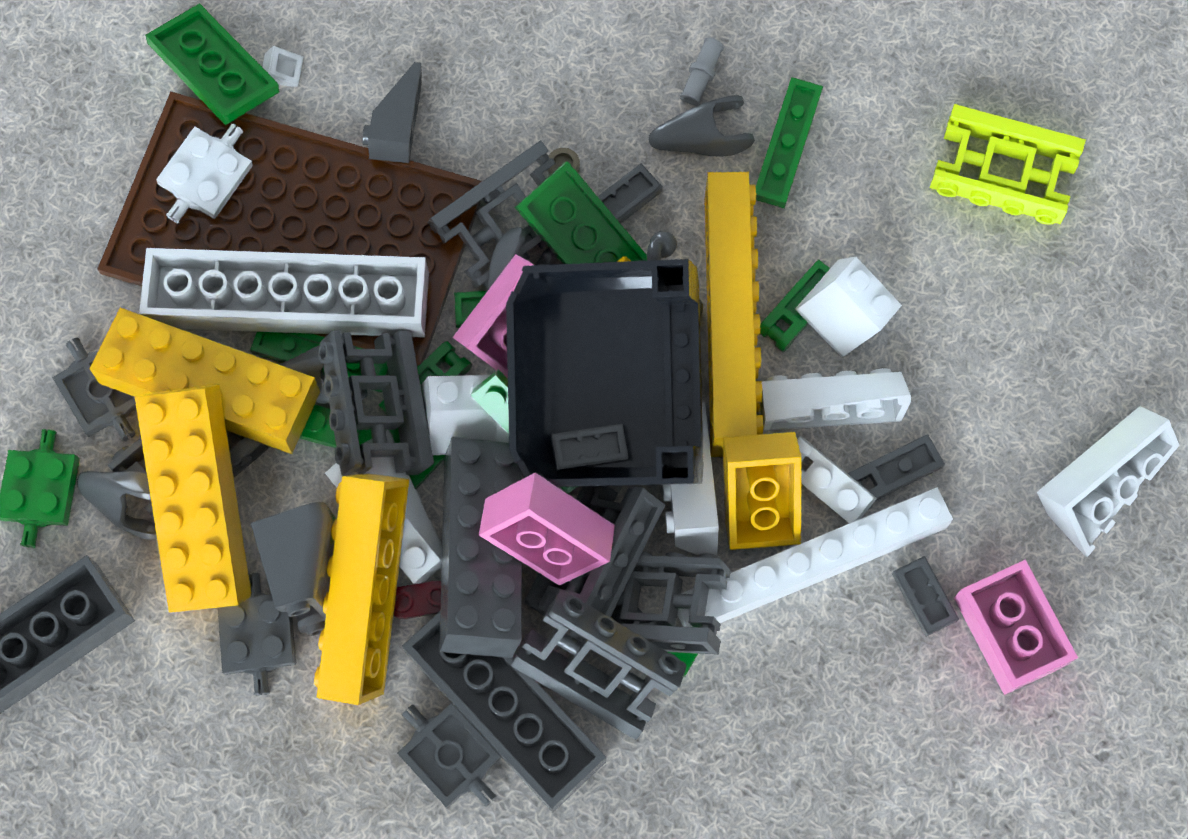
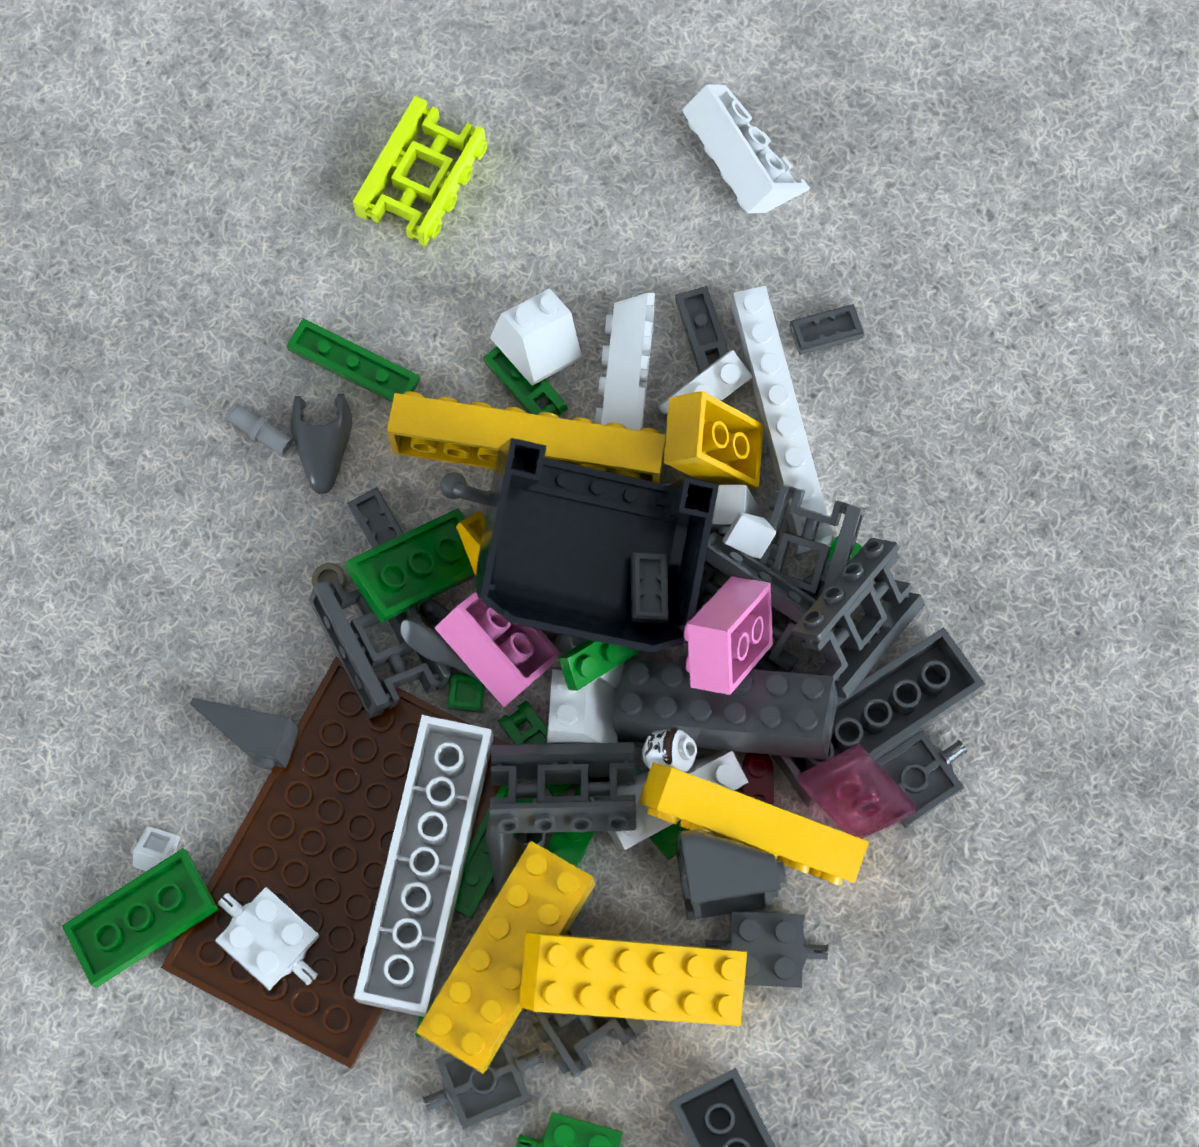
camera: 80 degrees left, 0 degrees up
(108, 494) = (604, 1075): dark grey animal -> none
(411, 689) = (857, 793): none -> clear pink tile
(428, 499) = (670, 748): none -> white head
(665, 538) = (750, 535): none -> white slope
(1015, 627) = (870, 257): bright pink brick -> none

